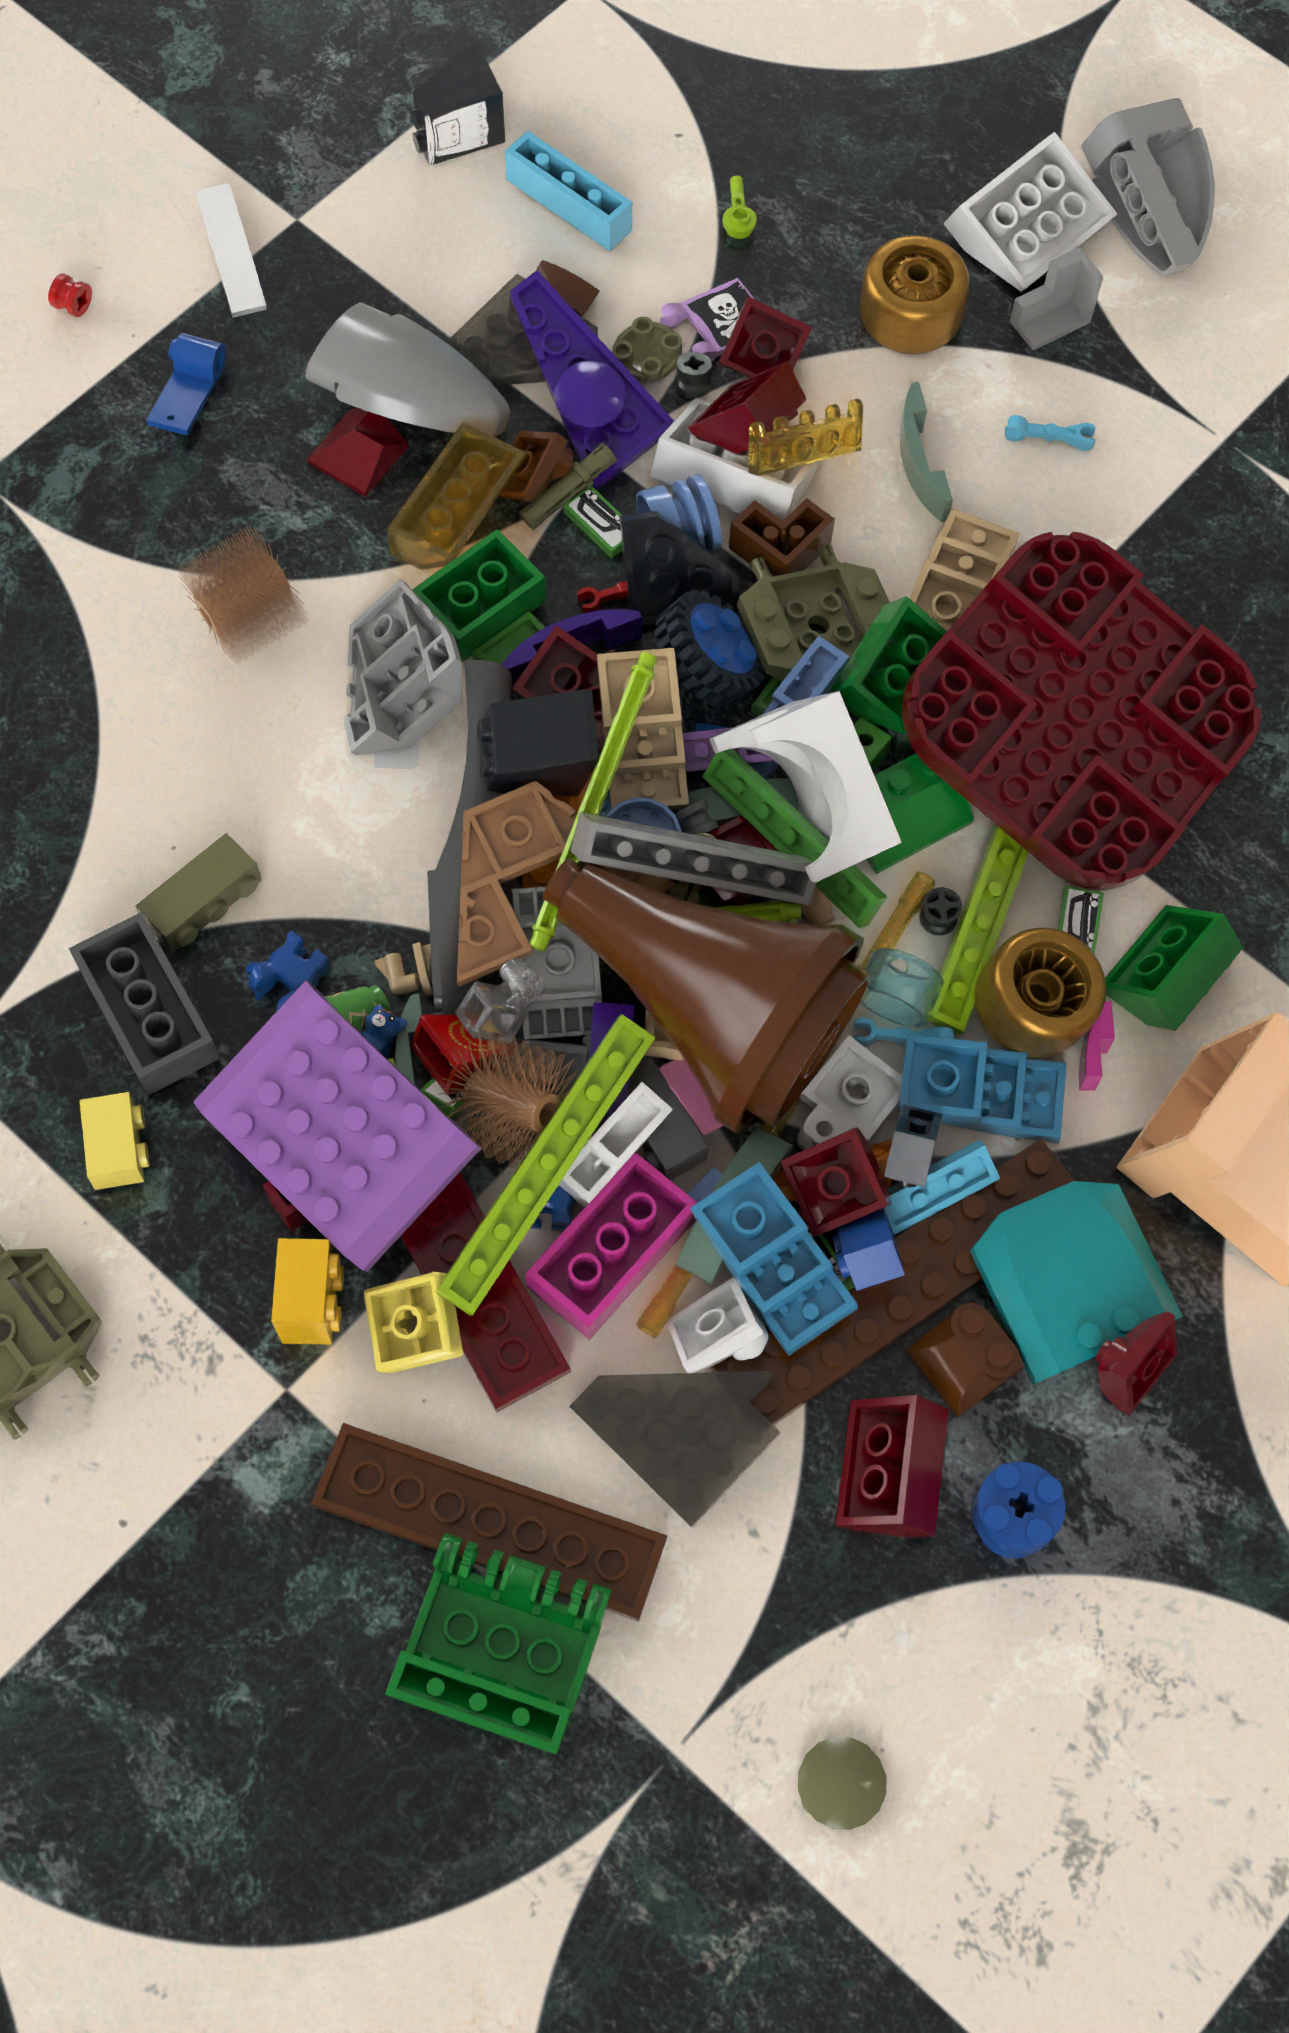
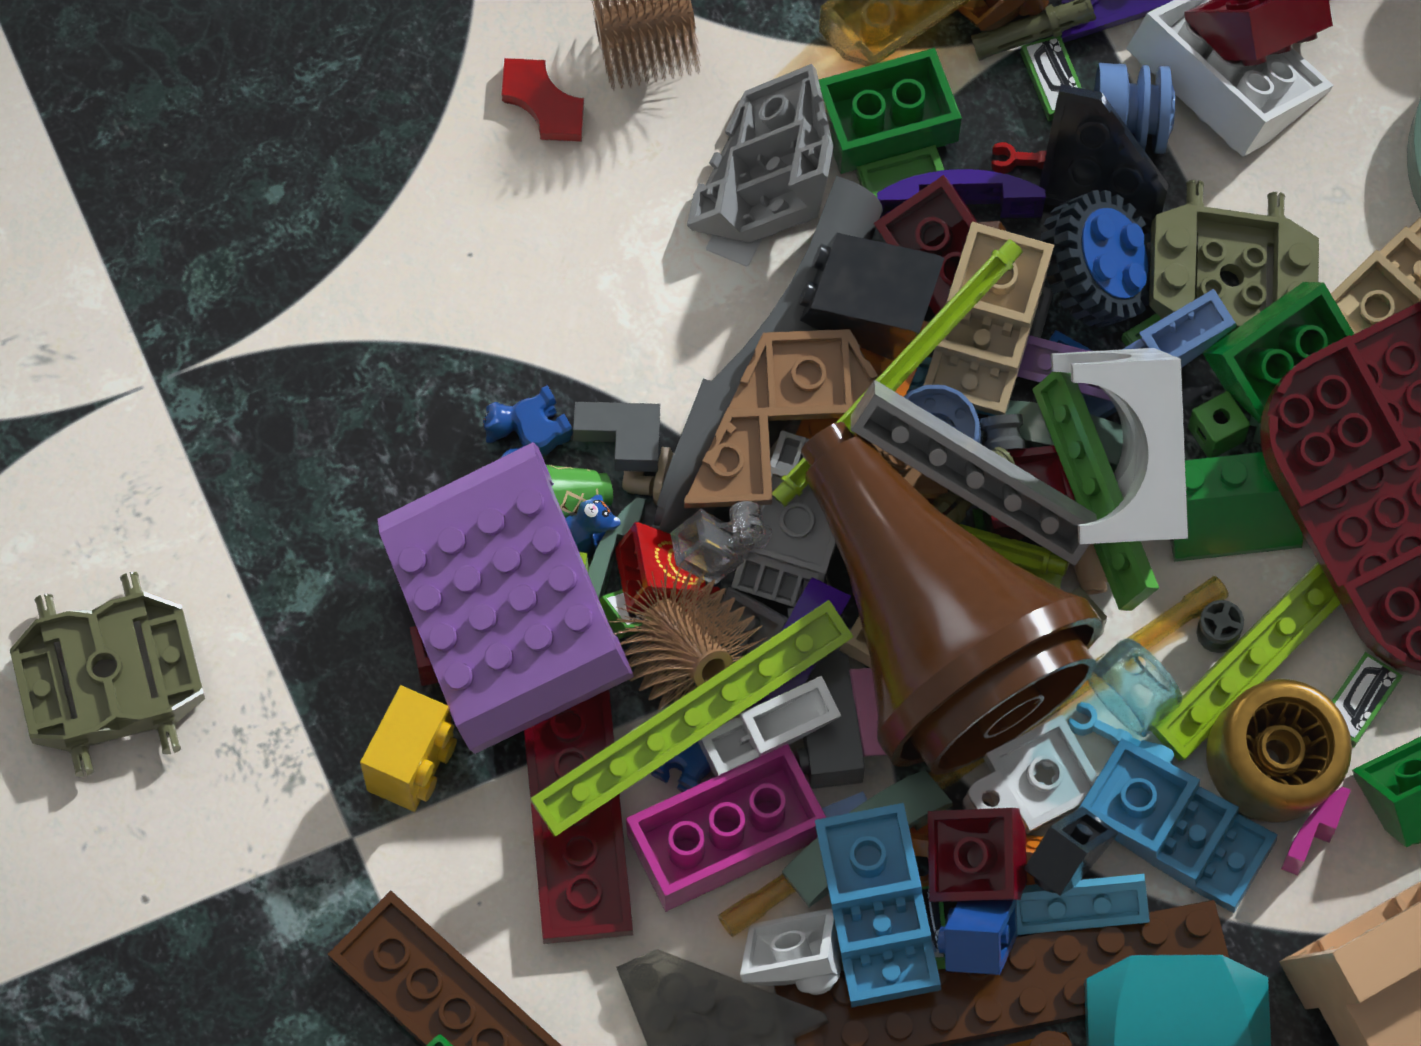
camera: 25 degrees right, 0 degrees up
(113, 1140) = (287, 526): light yellow brick -> none
(144, 1003) = (373, 402): dark grey brick -> none
(165, 689) = (530, 88): none -> red tile
(200, 893) = (474, 312): olive brick -> none
(374, 937) = (630, 425): none -> dark grey tile
(397, 1304) = (482, 802): light yellow brick -> none
(784, 544) = (1230, 176): reddish brown brick -> none
(805, 442) = (1305, 73): clear yellow hinge -> none

